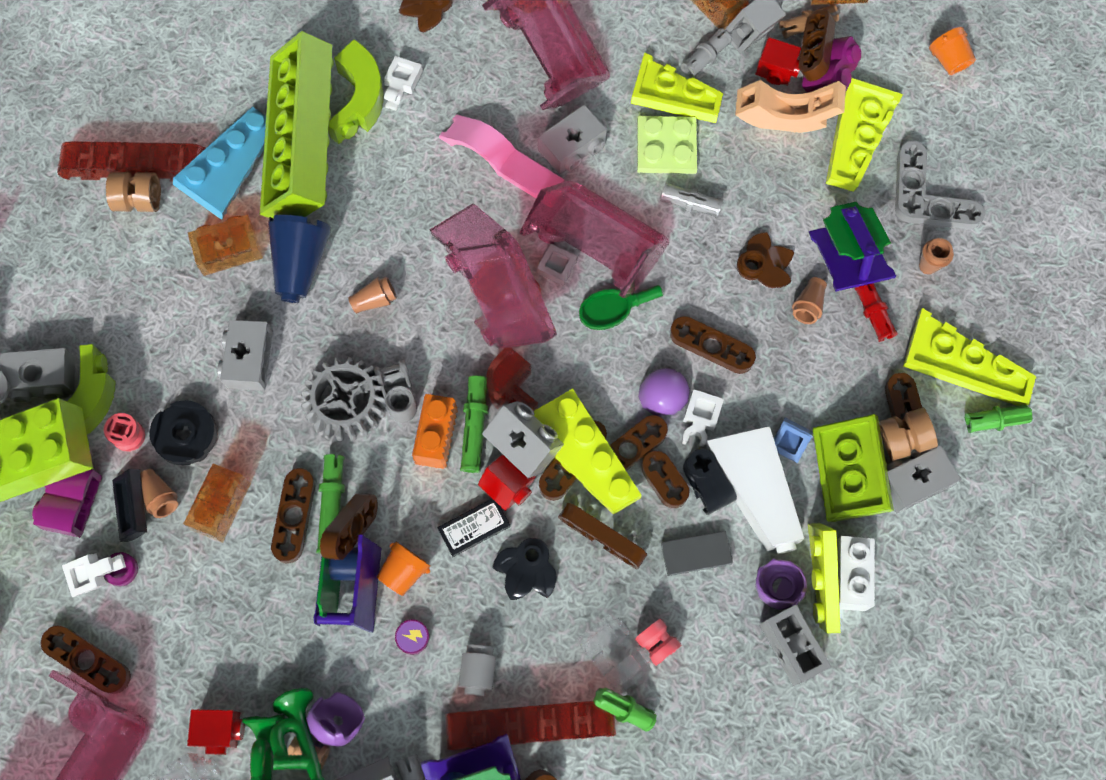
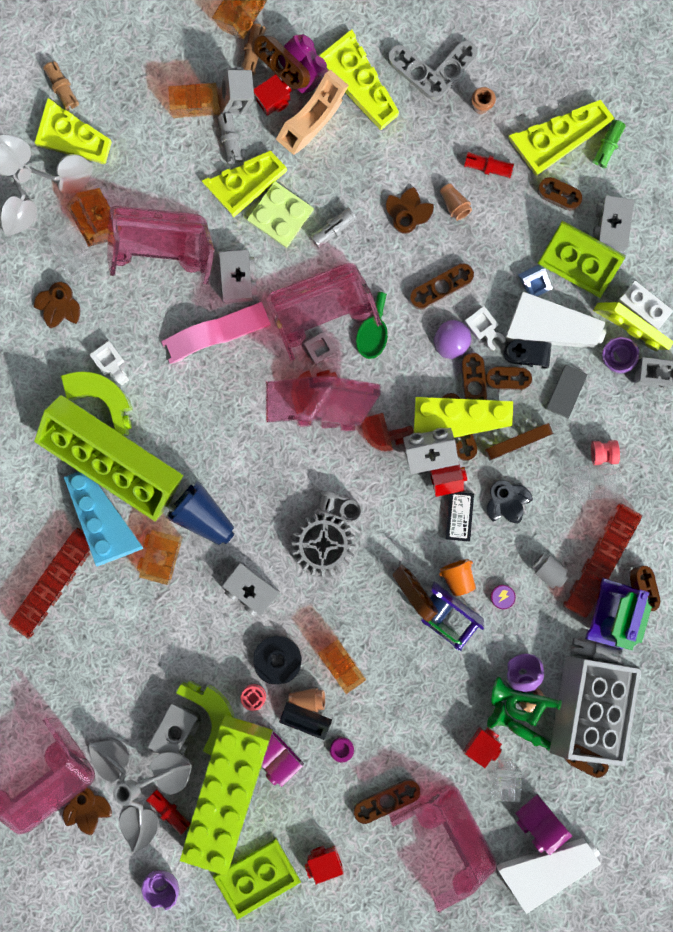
camera: 50 degrees left, 15 degrees up
(88, 572) = (334, 771): white plate -> none
(127, 192) = (74, 602): medium nougat wheel -> none
(284, 505) = (396, 630): reddish brown beam -> none
(331, 492) = (386, 595): bright green pin -> none
(373, 295) = (261, 481): nougat cone -> none
(435, 431) = (384, 501): orange brick -> none
(475, 412) = (390, 470): bright green pin -> none
(625, 709) = (632, 499): bright green axle -> none
(853, 246) = (440, 148): dark purple piece -> none
(907, 434) = (585, 210): medium nougat wheel -> none

